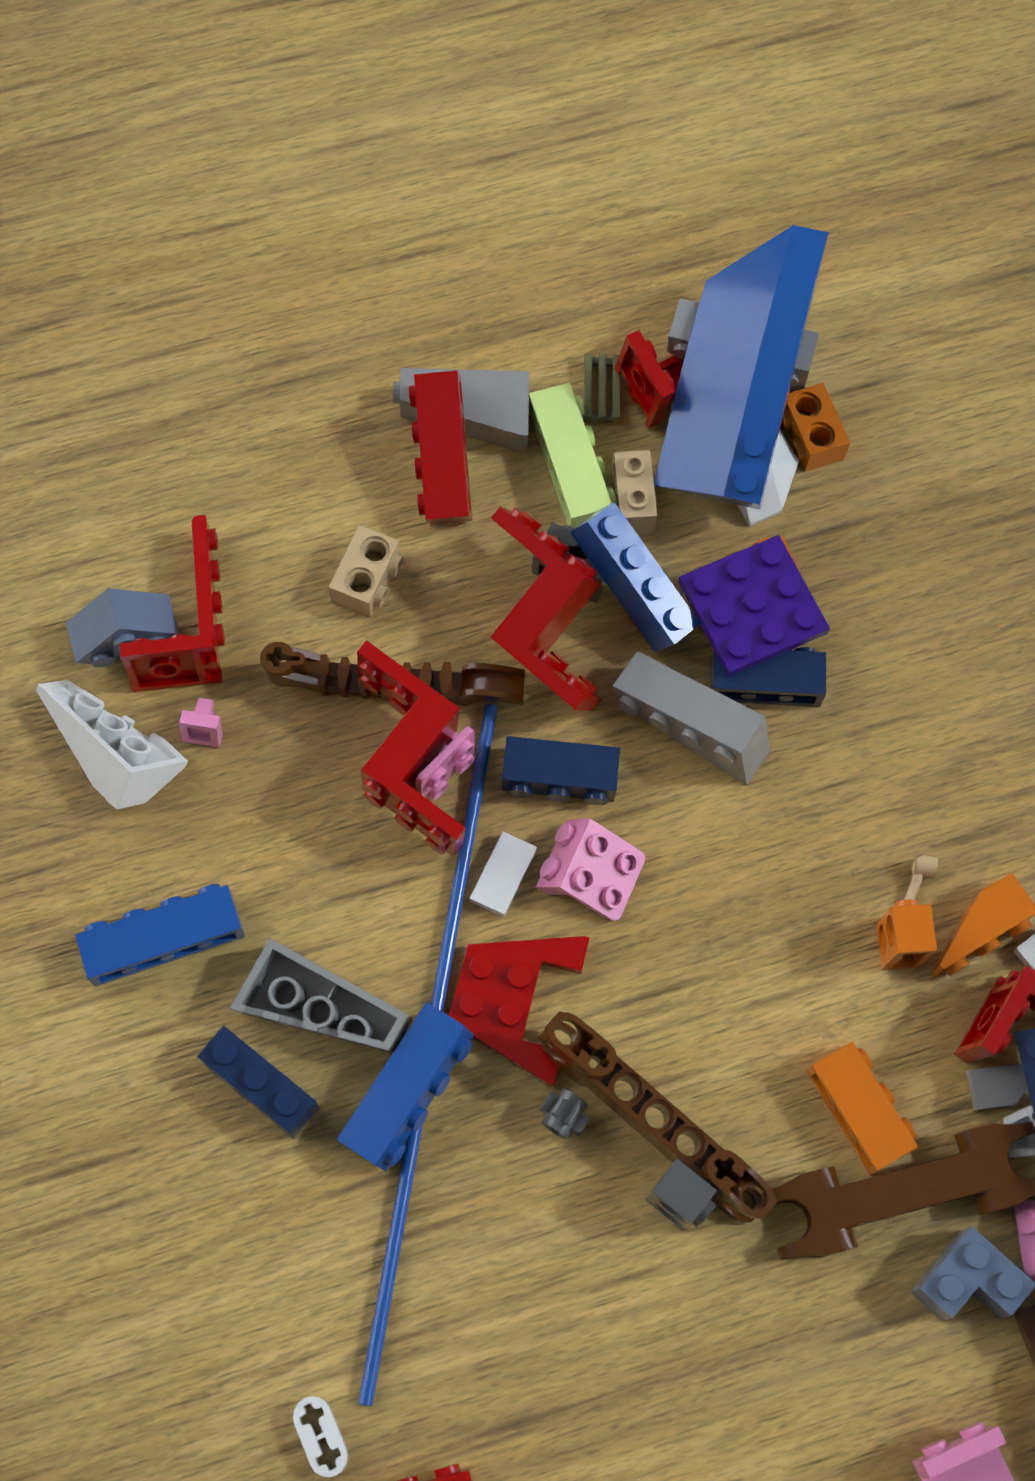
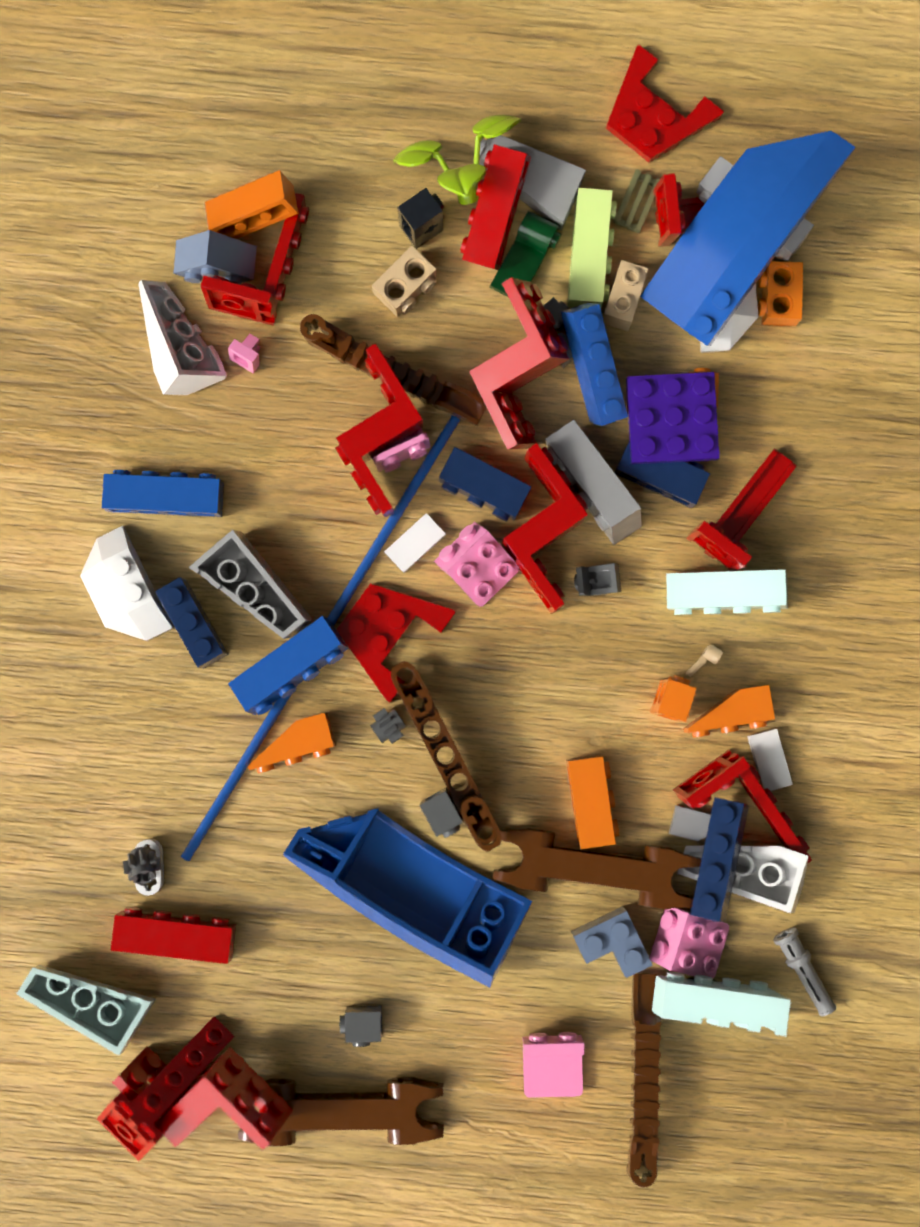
camera: 25 degrees right, 15 degrees up
(148, 547) = (252, 206): none -> orange brick
(150, 1075) = (123, 588): none -> white wedge
(313, 1432) = (141, 865): none -> dark grey gear
(357, 490) = (421, 217): none -> black brick
(388, 430) = (464, 179): none -> lime plant
(461, 1174) = (301, 738): none -> orange slope
(497, 486) = (528, 250): none -> dark green door
(575, 300) = (646, 120): none -> red wing
(661, 786) = (545, 527): none -> red bracket
(687, 1320) = (413, 891): none -> blue slope
(748, 830) = (597, 580): none -> dark grey bracket
(875, 718) = (722, 538): none -> red bracket
(911, 781) = (727, 591): none -> light aqua wedge

